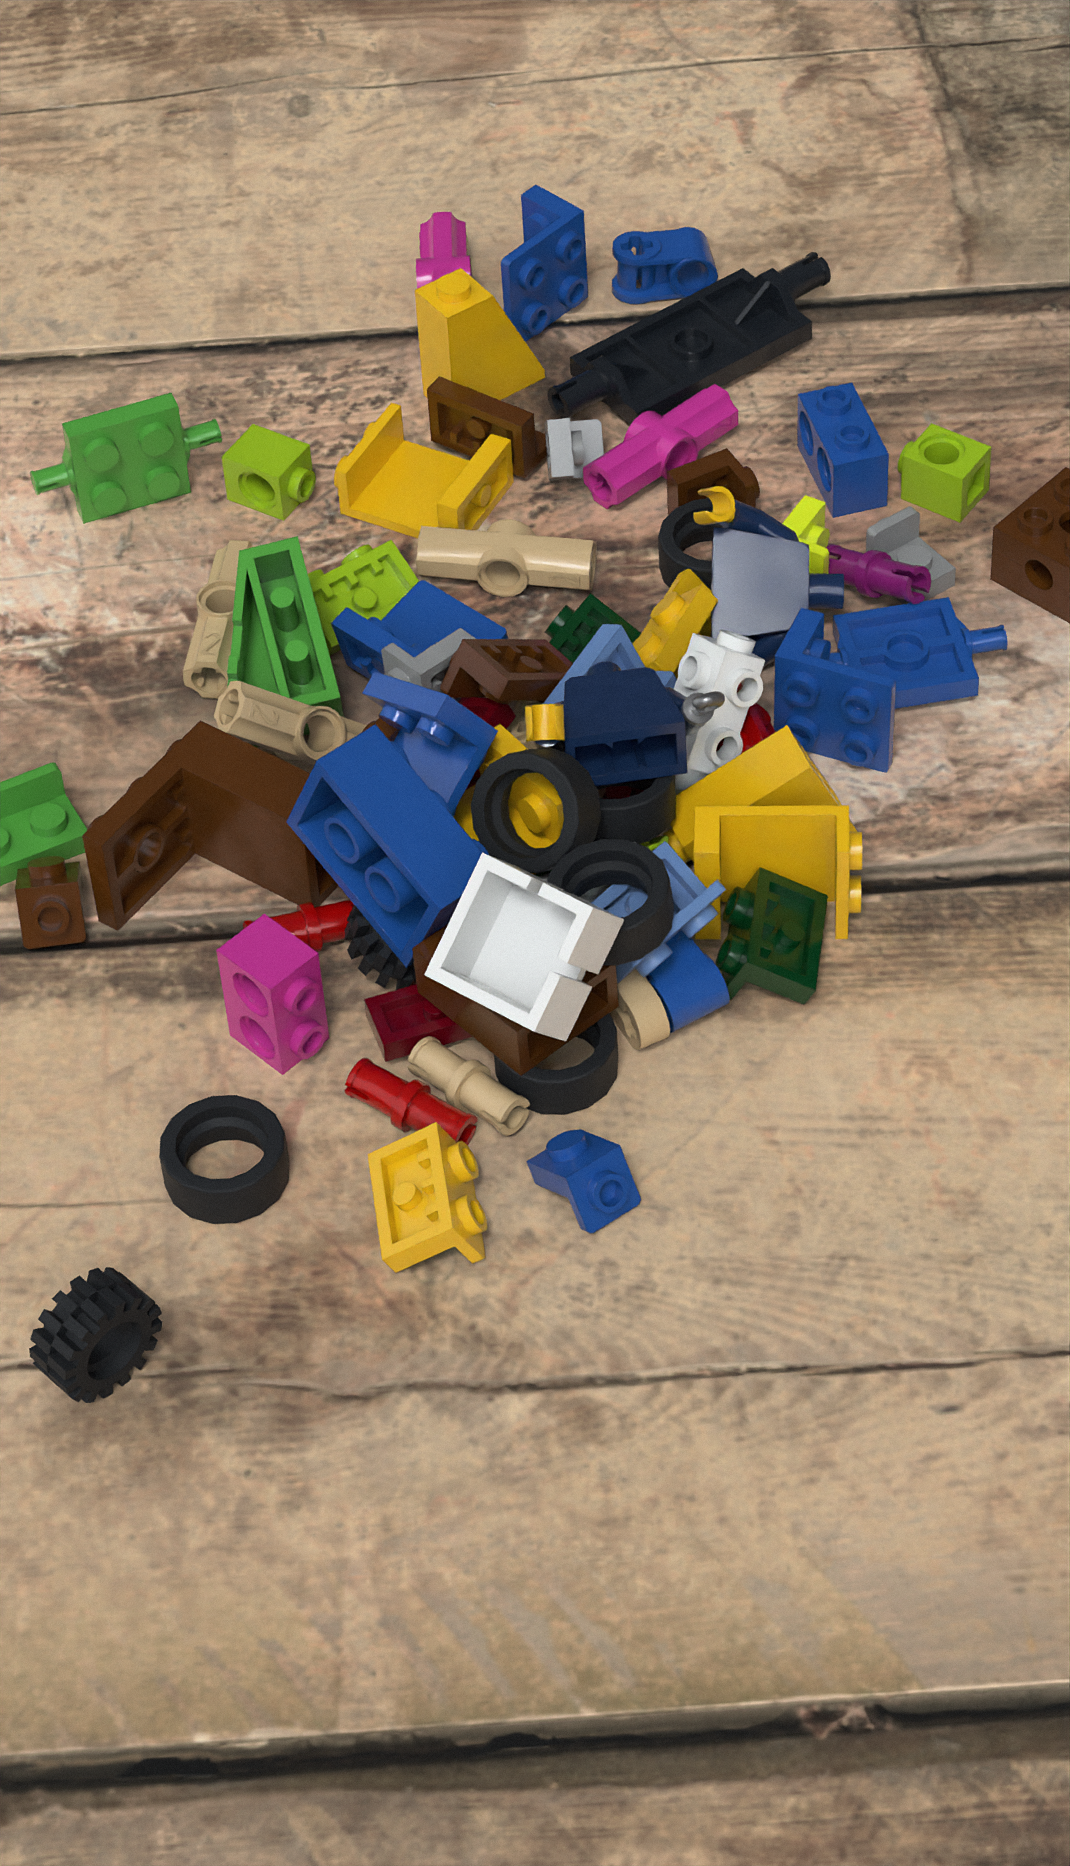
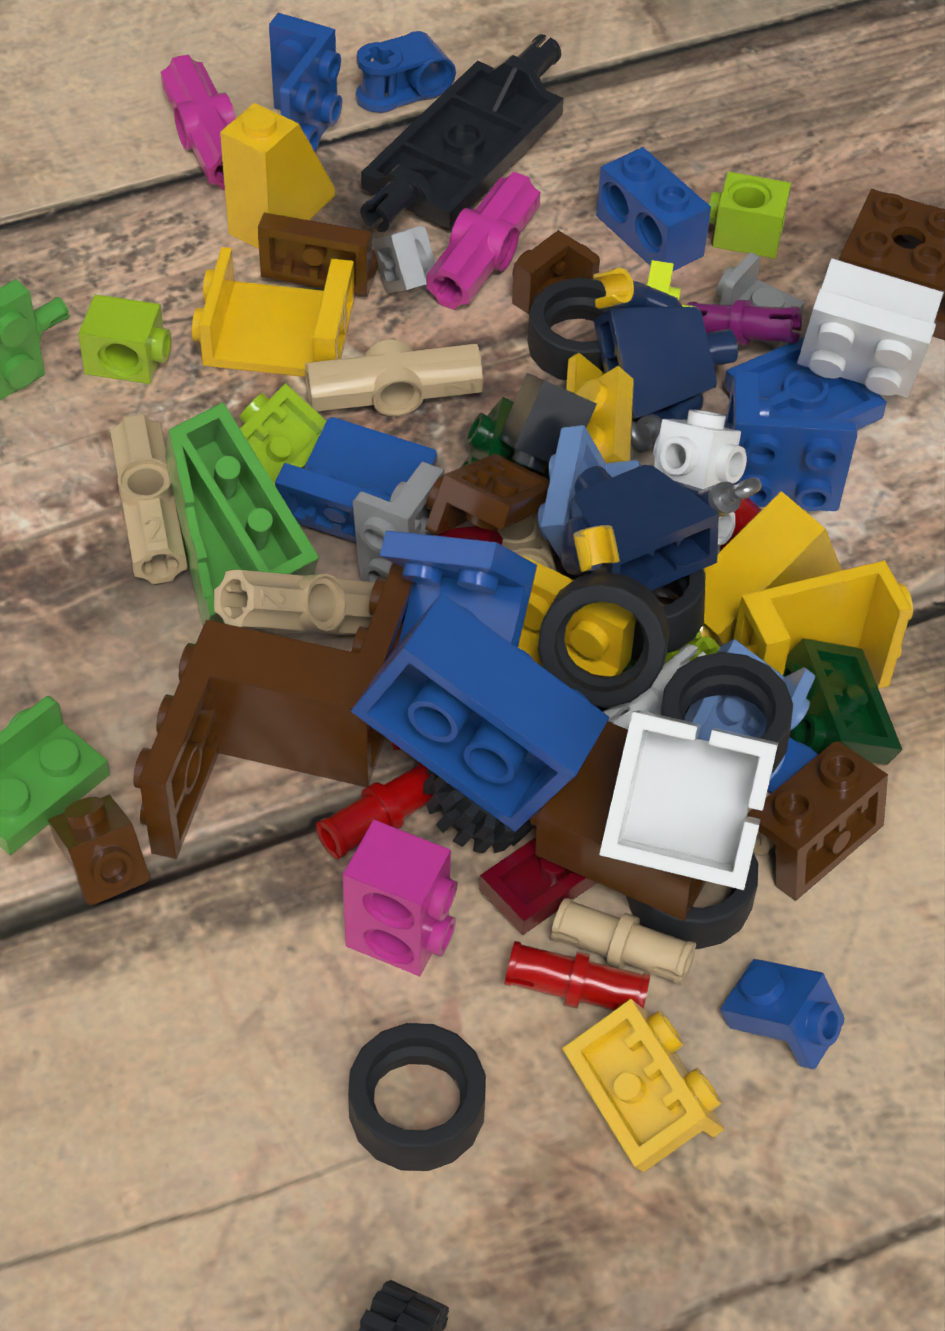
camera: 25 degrees left, 5 degrees up
(609, 604) = (537, 420): none -> black brick
(698, 1026) = (822, 816): none -> reddish brown bracket
(977, 600) = (870, 329): none -> white bracket

